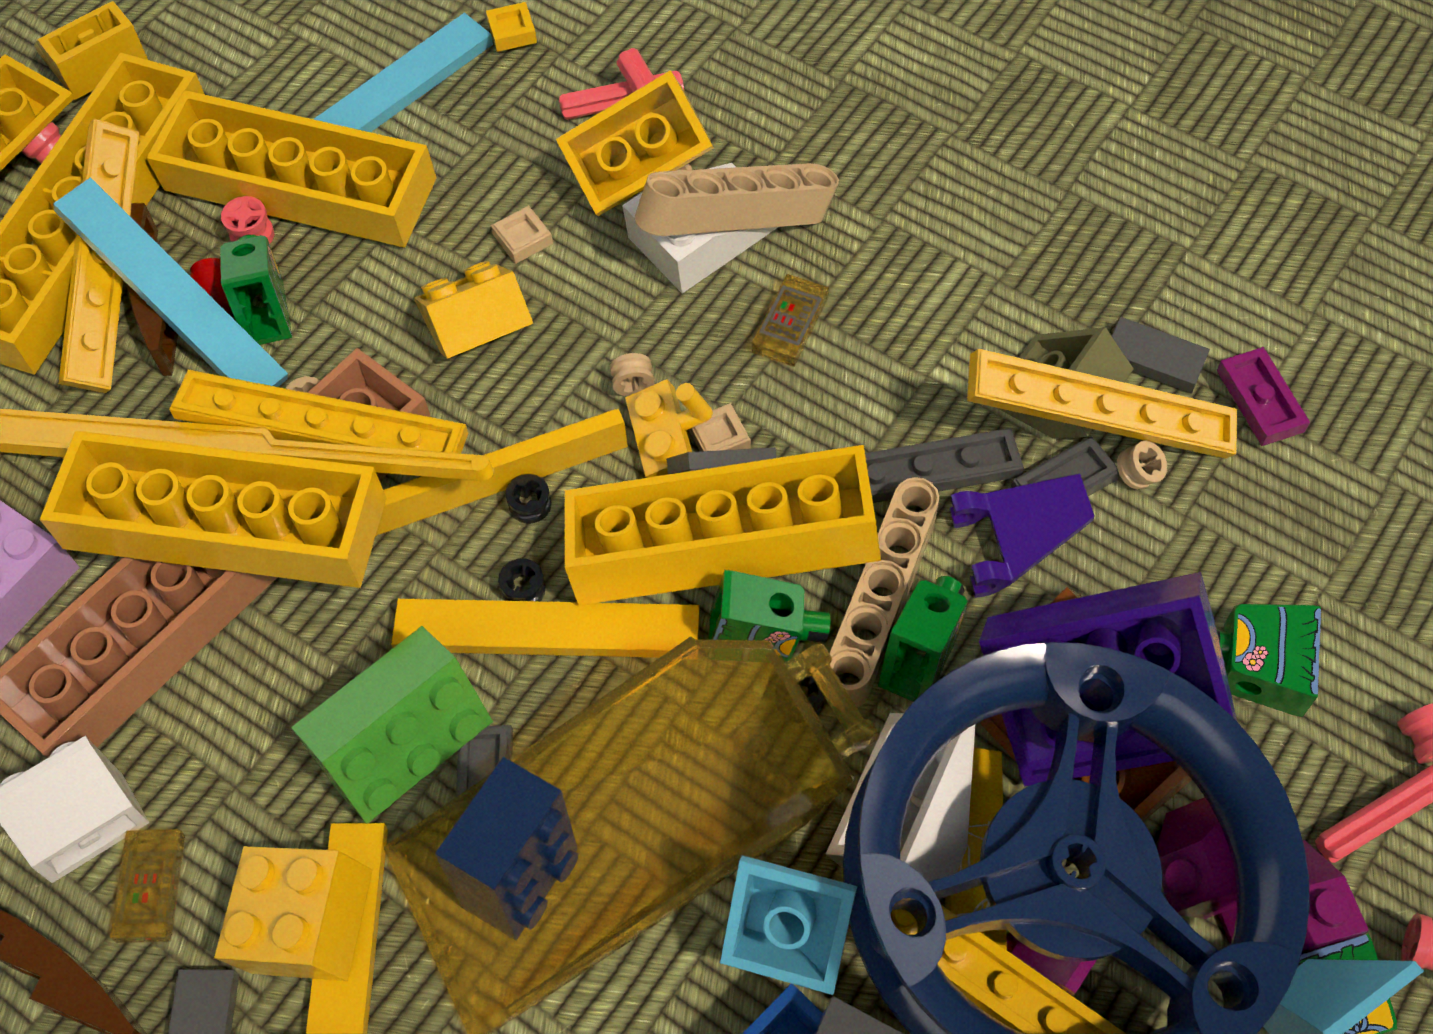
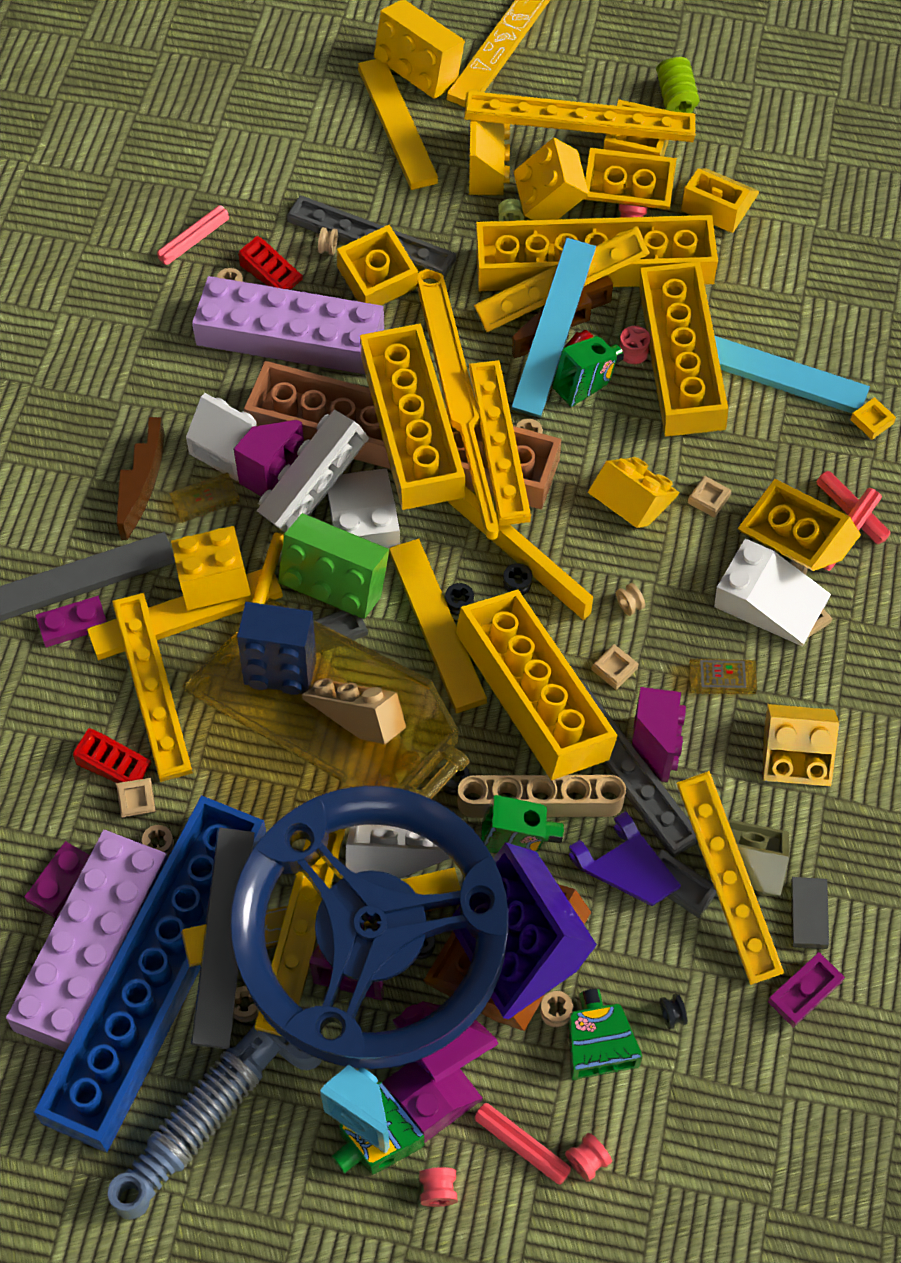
camera: 65 degrees right, 0 degrees up
(148, 751) = (265, 453): none -> magenta slope
(220, 691) = (314, 470): none -> white slope
(303, 651) = (365, 506): none -> white slope
(372, 852) = (268, 569): none -> yellow piece
(651, 778) = (361, 710): none -> tan slope
(661, 424) = (599, 631): yellow plate -> none
(709, 459) = (584, 670): dark grey tile -> none
(735, 198) = (794, 616): tan beam -> none
(765, 610) = (484, 721): green torso -> none
(787, 924) = (287, 789): medium azure slope -> none
(855, 406) = (659, 730): none -> magenta slope
(927, 270) = (799, 745): none -> yellow slope
(1152, 460) = (717, 917): tan bush -> none
(1250, 552) = (673, 1011): none -> black bush

